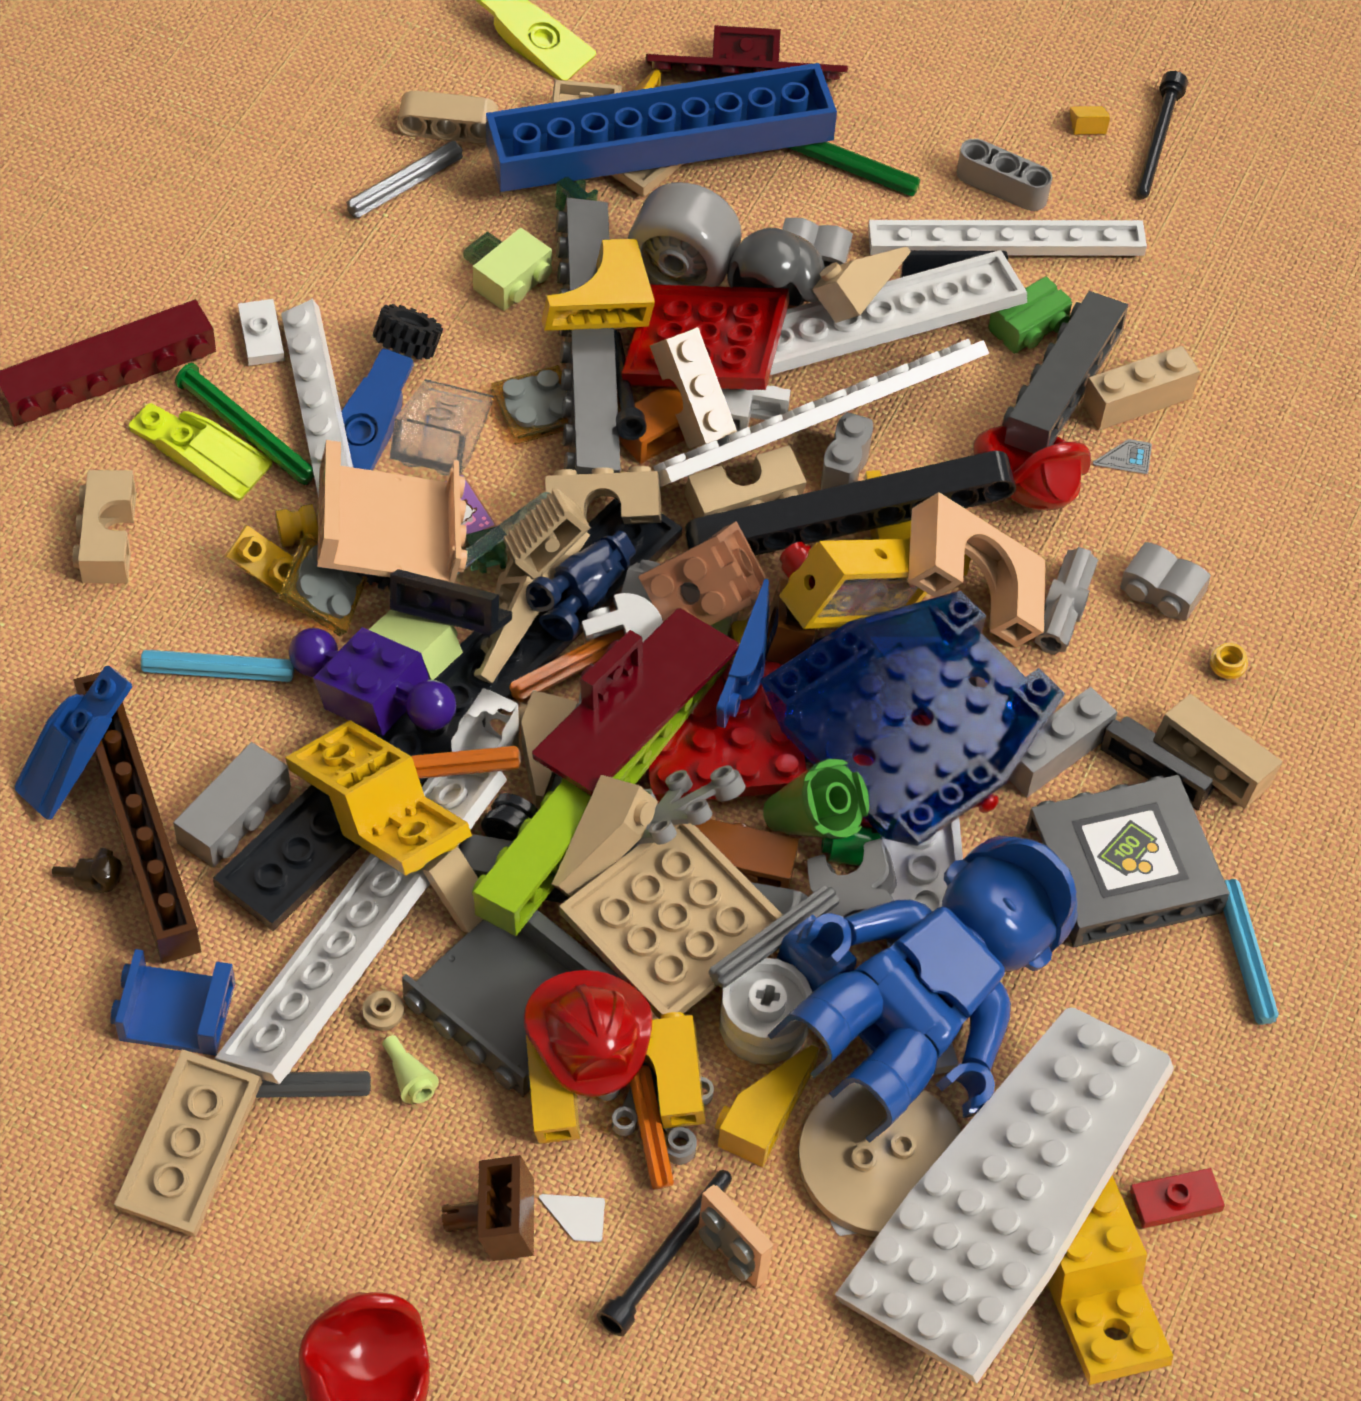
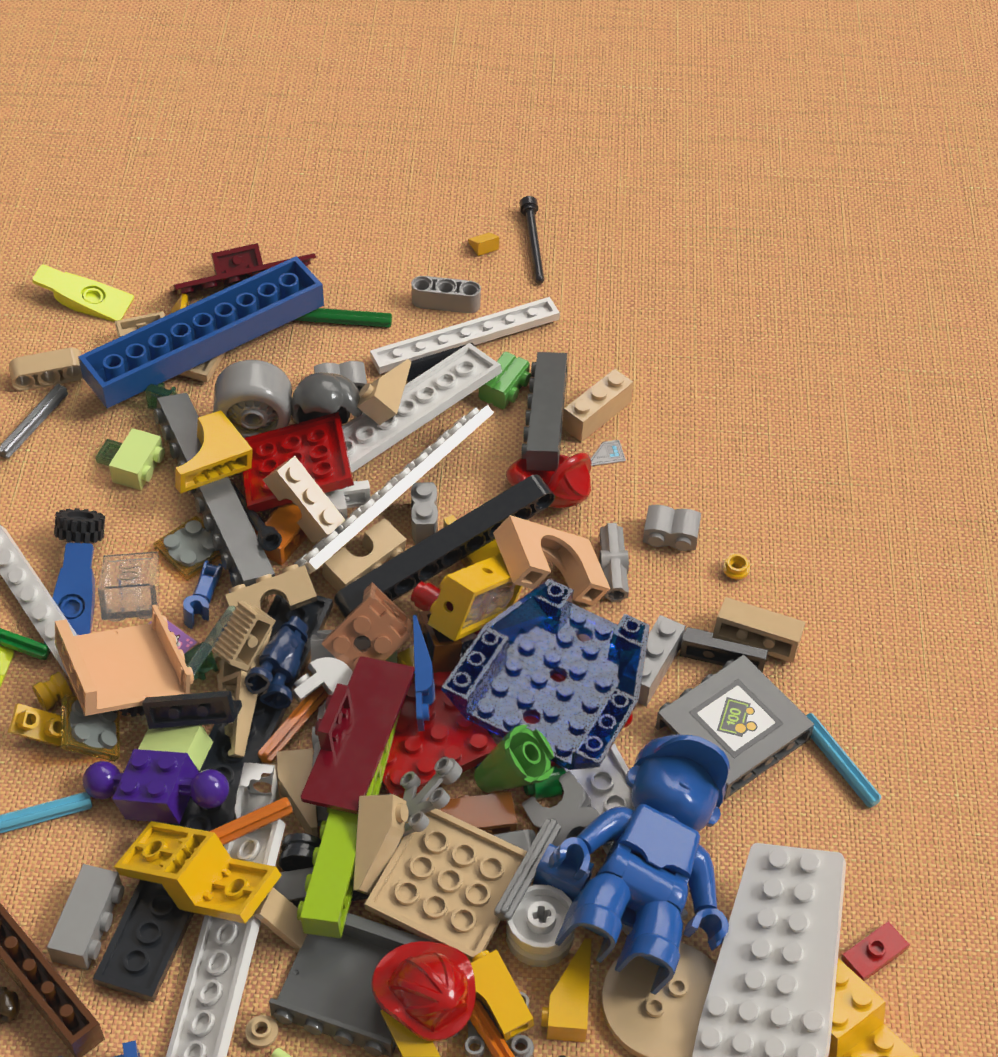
camera: 20 degrees left, 5 degrees down
(525, 467) = (200, 600): none -> blue piece

